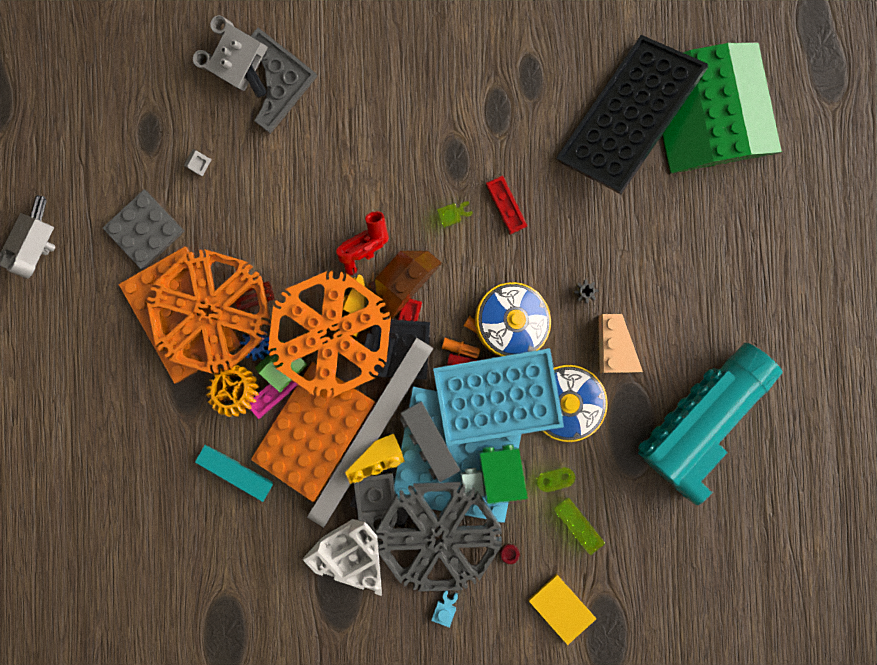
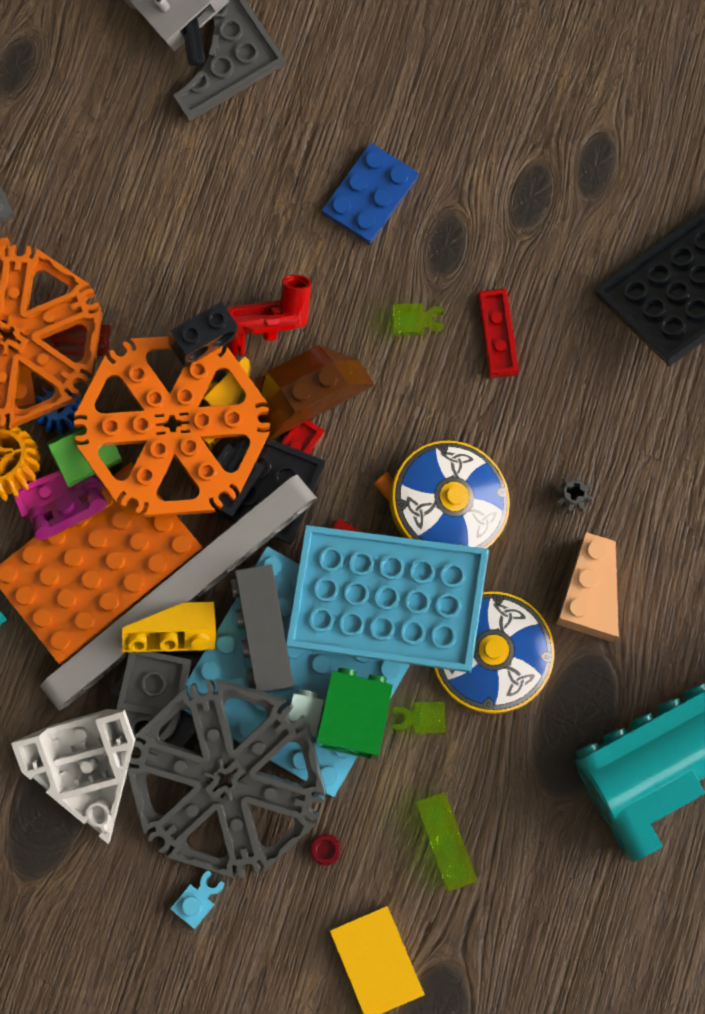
camera: 20 degrees right, 10 degrees down
(197, 162) = (70, 126): light grey plate -> none
(284, 406) = (67, 510): none -> magenta plate
(329, 272) = (203, 334): none -> black brick
(398, 142) = (370, 193): none -> blue plate
(461, 348) = (357, 515): orange axle -> none
(541, 455) = (426, 718): none -> clear neon green plate
(555, 479) = (434, 759): clear neon green plate -> none

